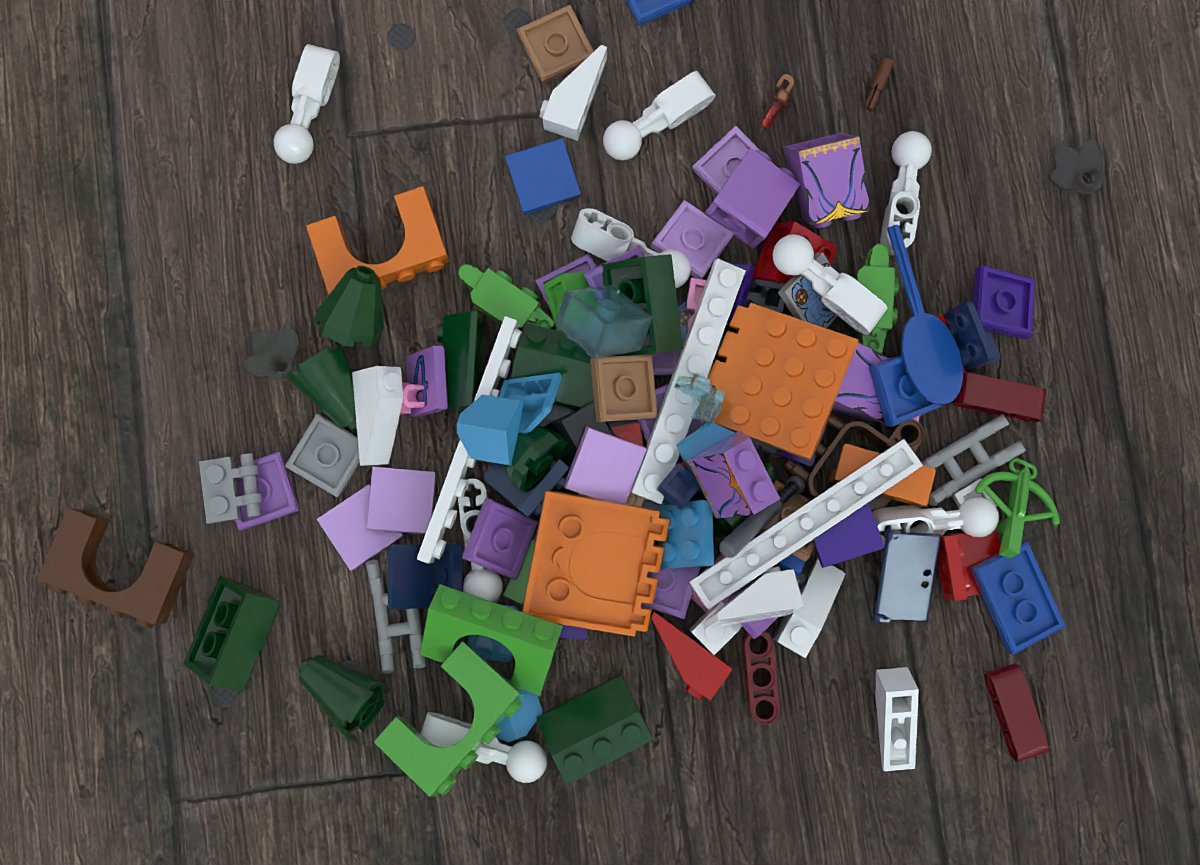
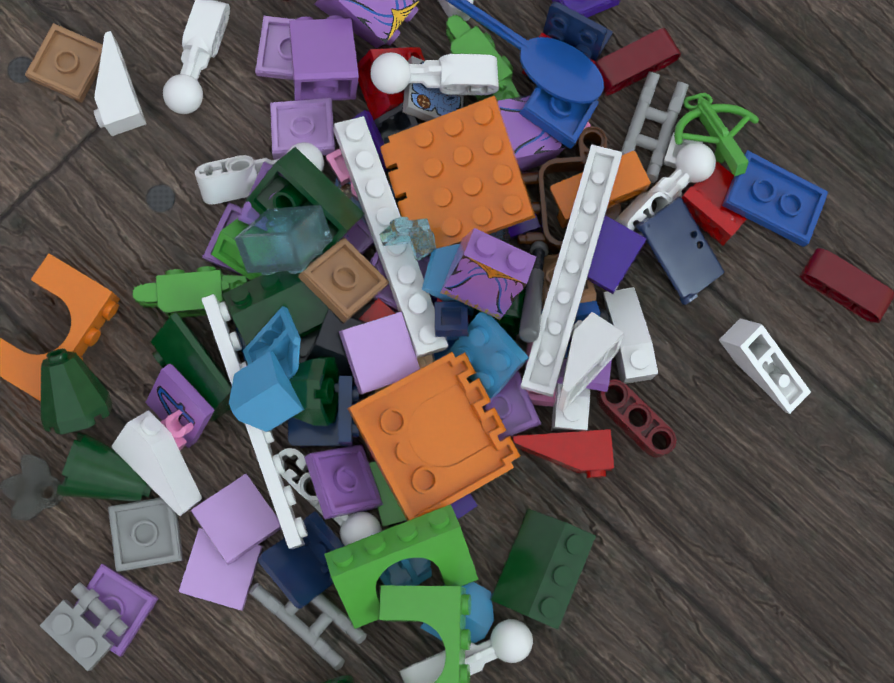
camera: 45 degrees left, 5 degrees down
(543, 176) = (141, 172): blue tile -> none

